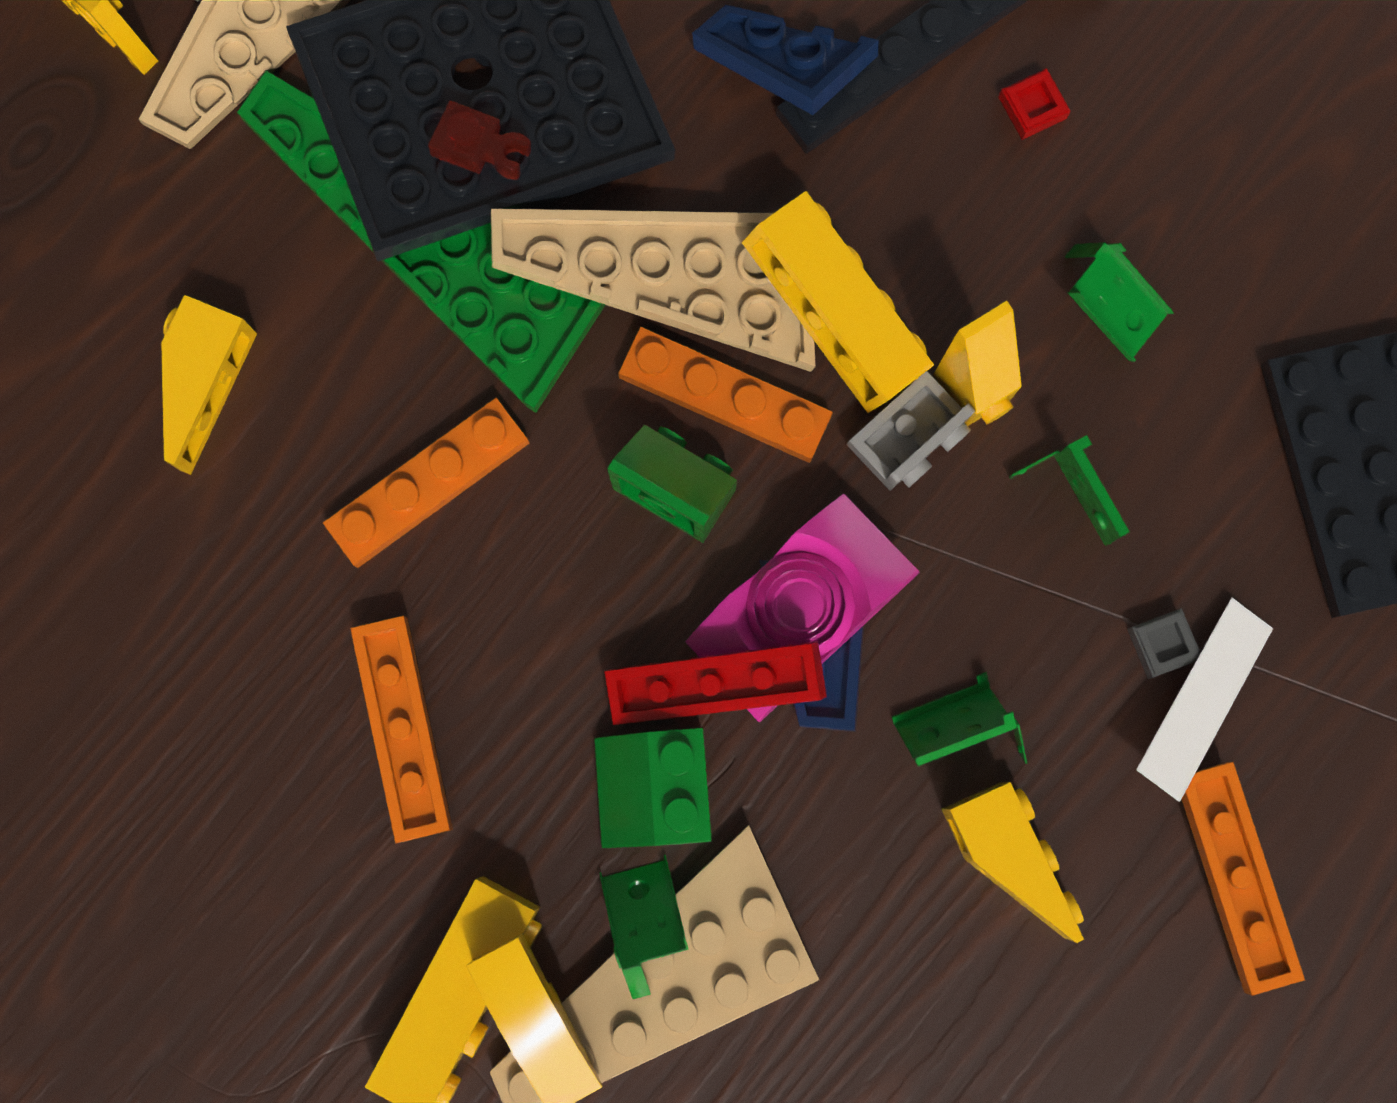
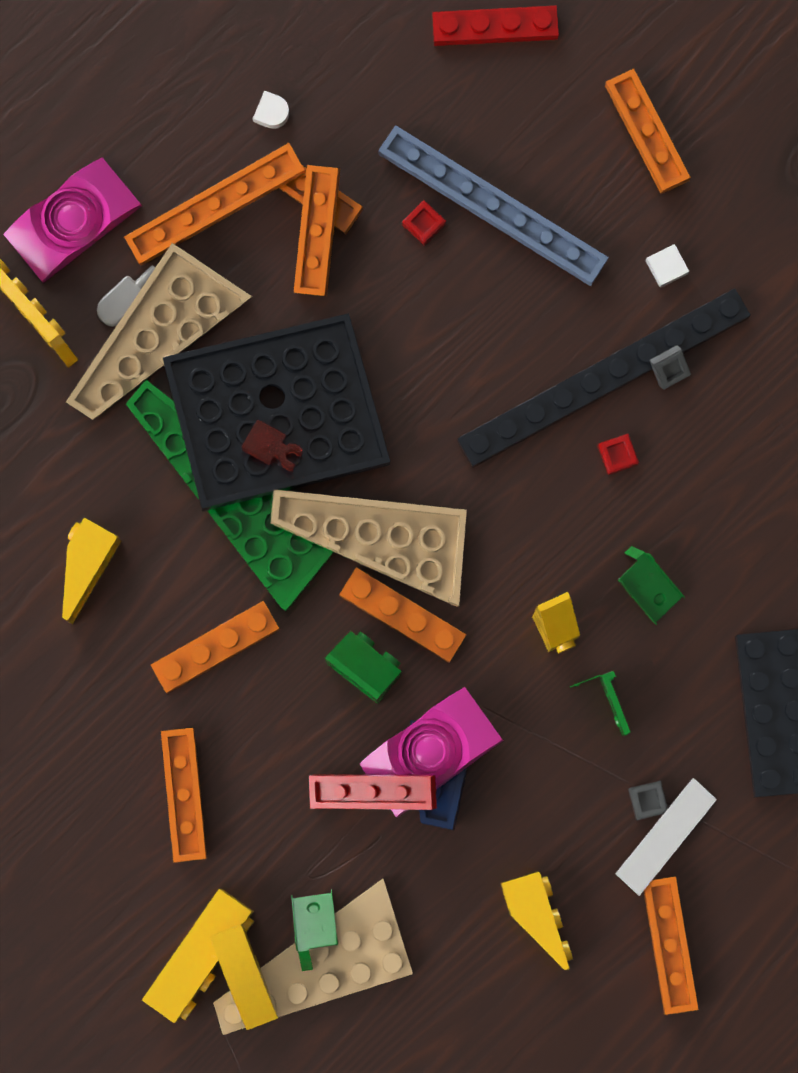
camera: 10 degrees right, 0 degrees up
(653, 789) = (329, 849): green slope -> none
(781, 59) = (464, 411): dark blue wing -> none
(837, 301) = (477, 570): yellow brick -> none
(909, 431) = (511, 652): light grey bracket -> none
(956, 723) = (514, 832): green piece -> none

